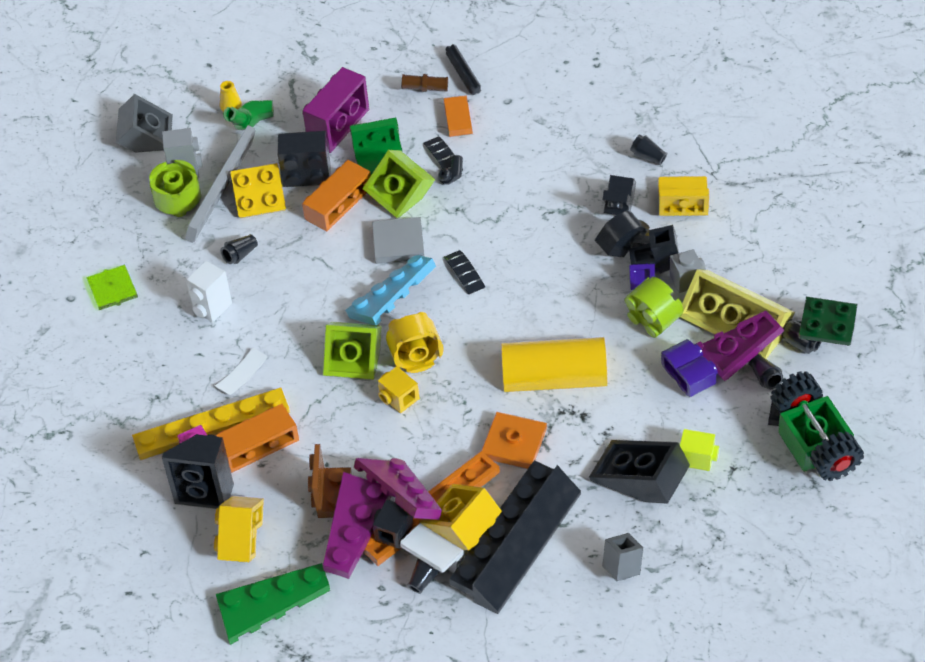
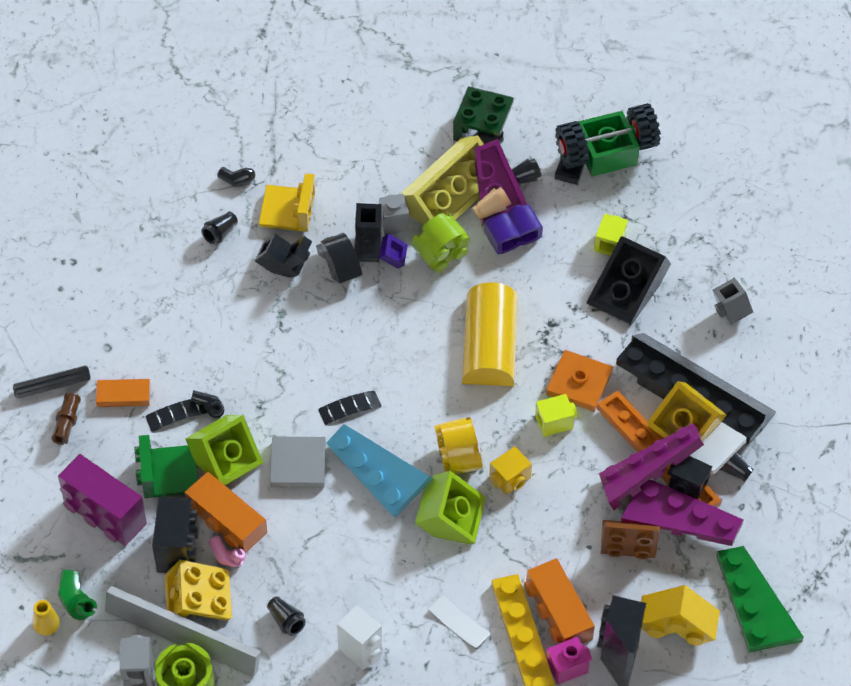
camera: 90 degrees left, 5 degrees up
(295, 207) = (224, 556): none -> bright pink arm
(465, 419) = (555, 415): none -> neon yellow brick
(709, 341) = (491, 204): none -> light nougat cone
(712, 155) = (236, 178): none -> black arm

